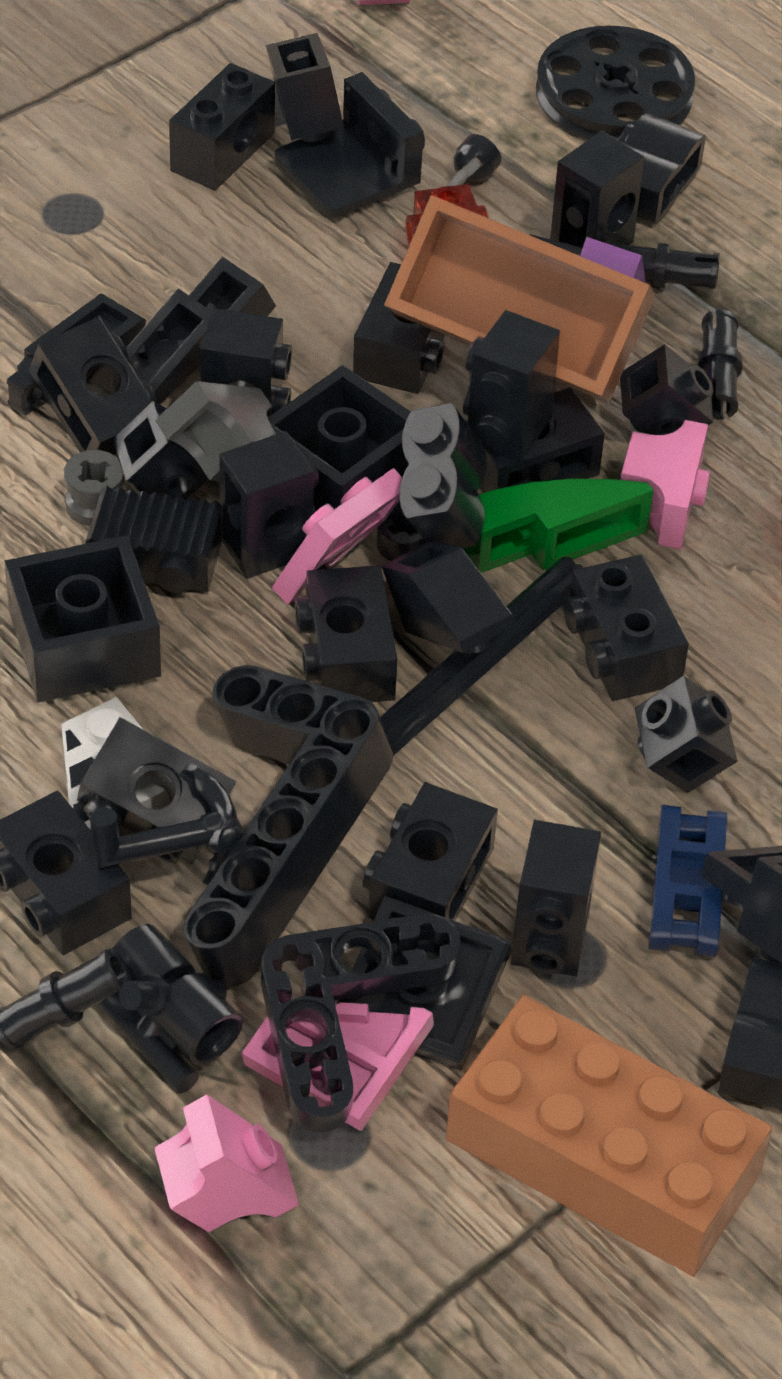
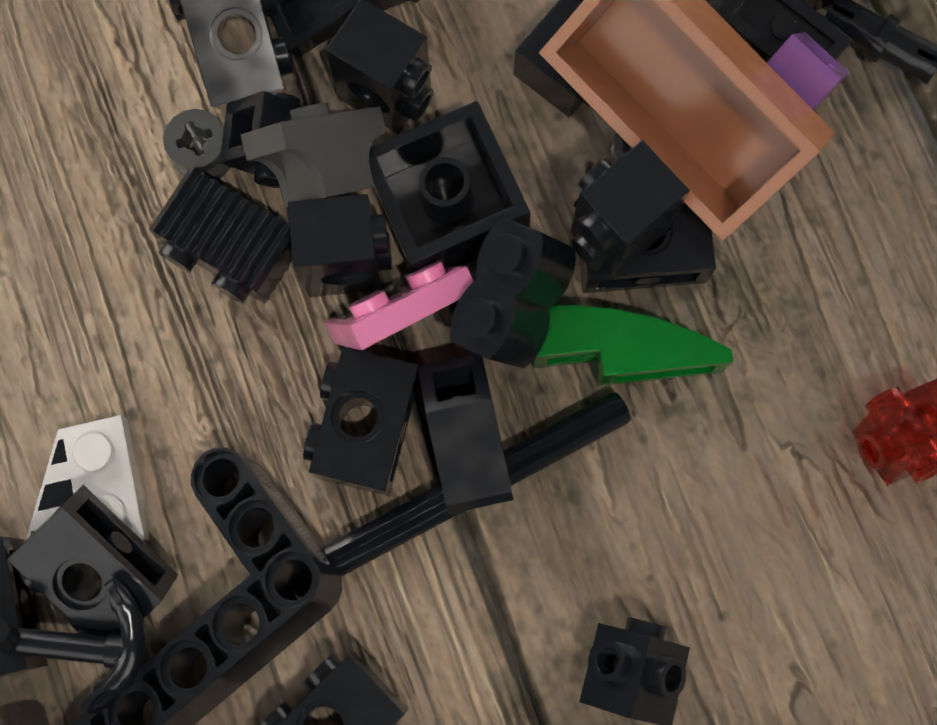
camera: 25 degrees right, 30 degrees up
(83, 618) = (110, 321): black brick -> none
(625, 627) = (637, 508): black brick -> none
(664, 393) = (805, 234): black brick -> none
(674, 473) = (763, 333): bright pink brick -> none
(721, 360) = (885, 192): black pin -> none

